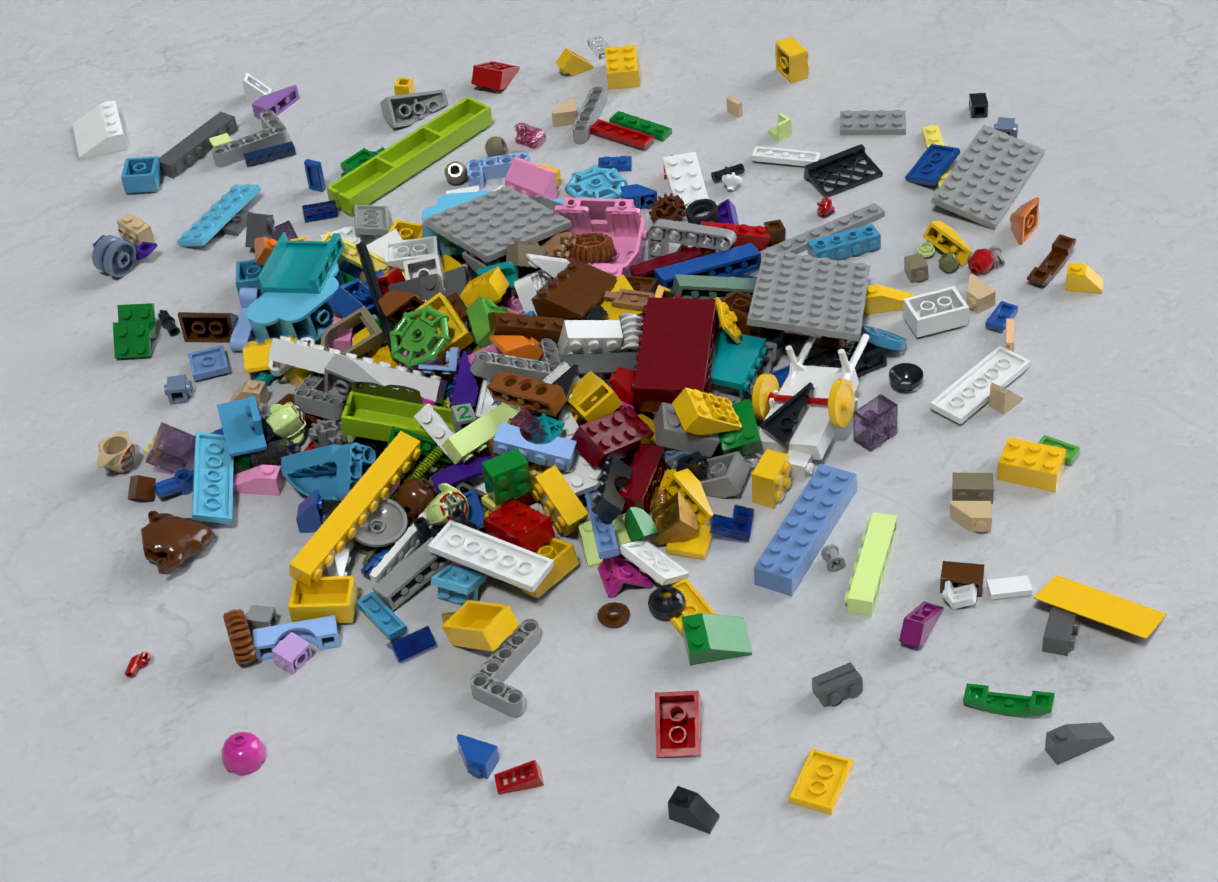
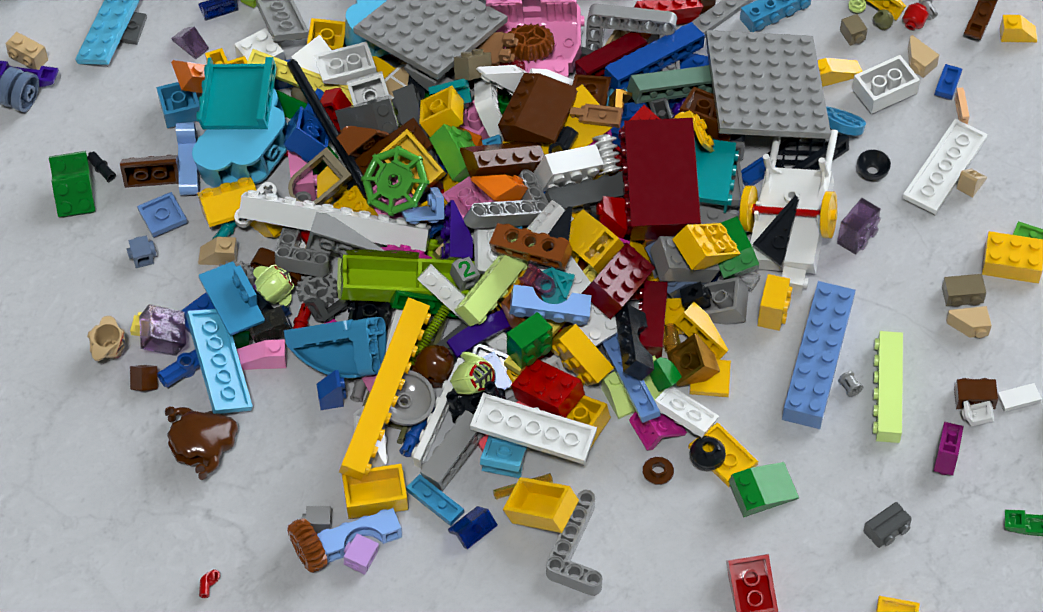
camera: 15 degrees left, 15 degrees up
(258, 226) = (166, 42): dark grey brick -> none
(736, 527) = (752, 358): clear blue plate -> none

